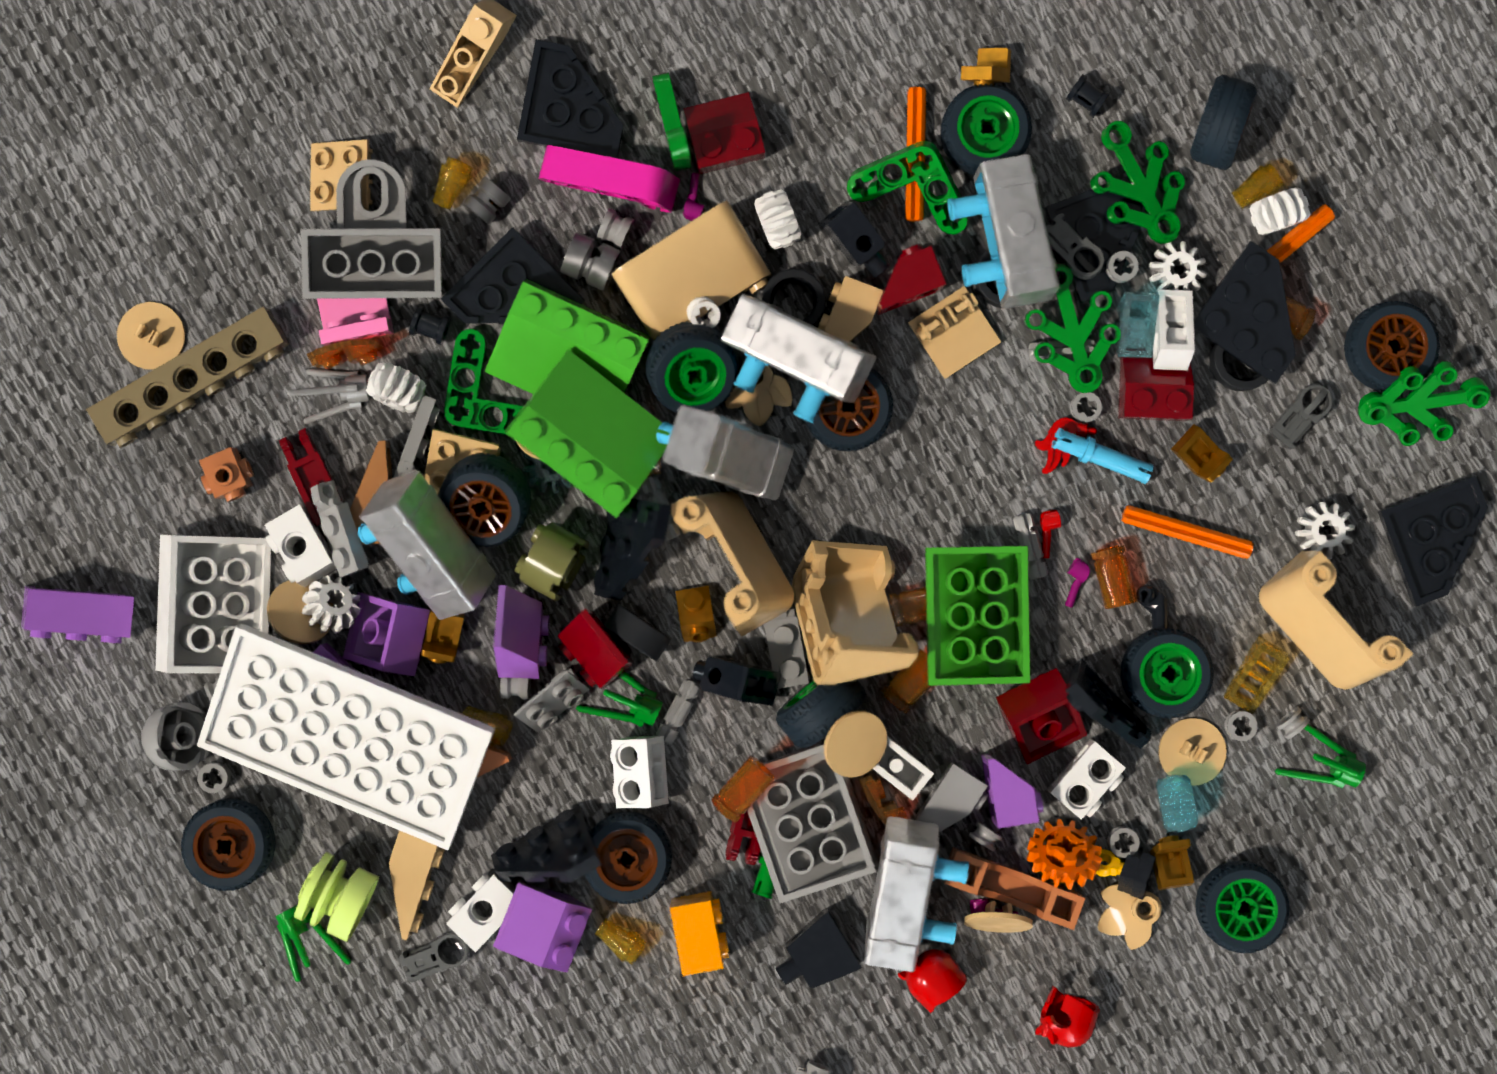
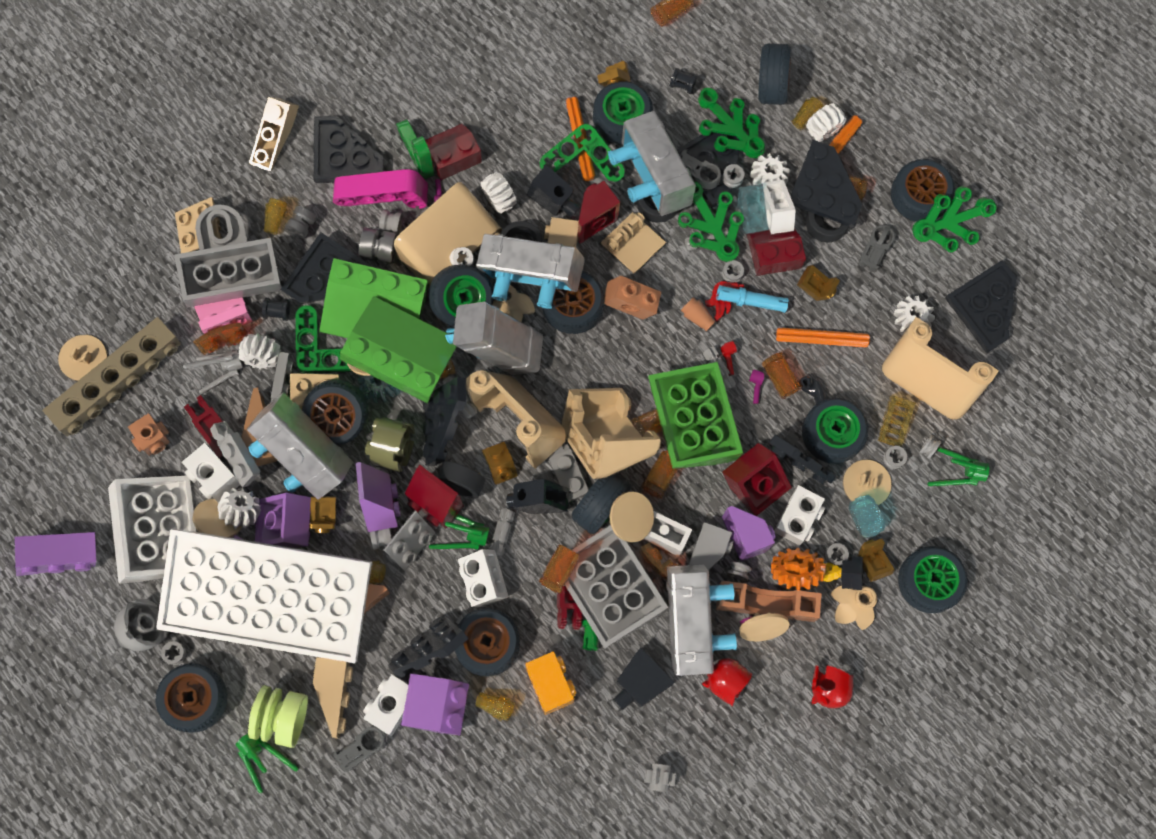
camera: 15 degrees left, 15 degrees down
(931, 421) = (632, 297): none -> nougat brick
(1019, 460) = (698, 314): none -> nougat cone

